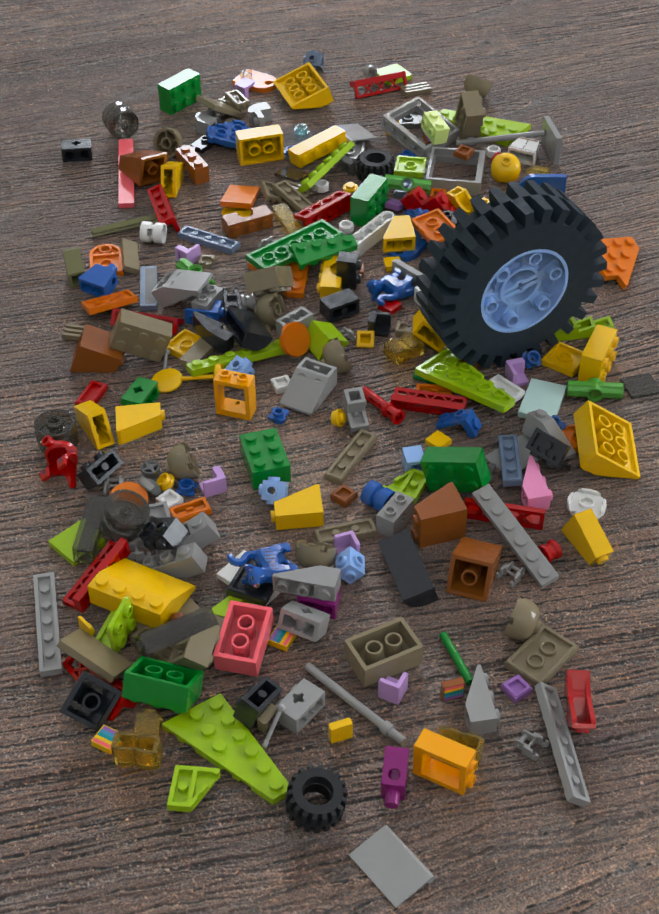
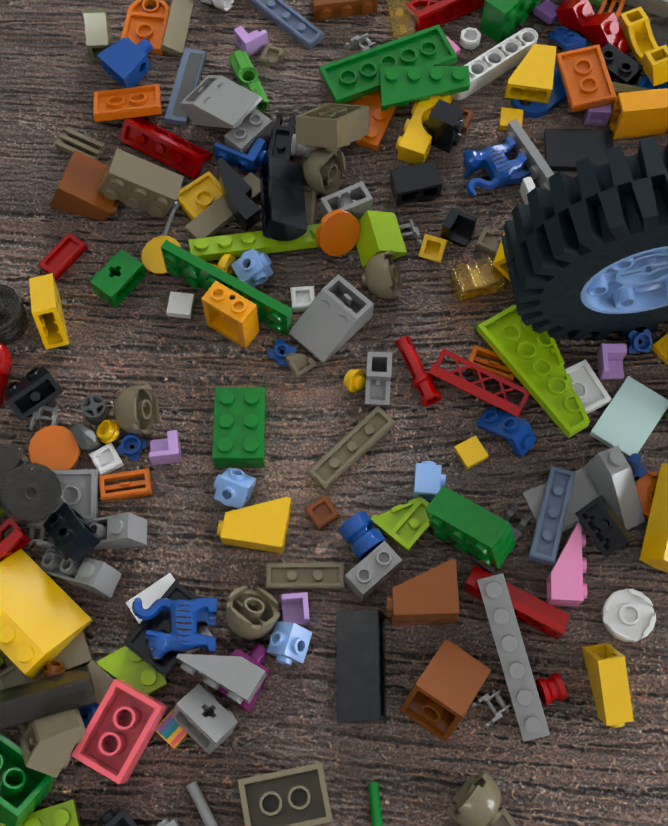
camera: 15 degrees right, 25 degrees up
(138, 421) = (102, 319): yellow slope -> none
(192, 404) = (180, 305): none -> white tile
(199, 376) = (203, 274): none -> green plate
(293, 417) = (299, 363): none -> dark tan tile
(390, 307) = (484, 198): red tile -> none

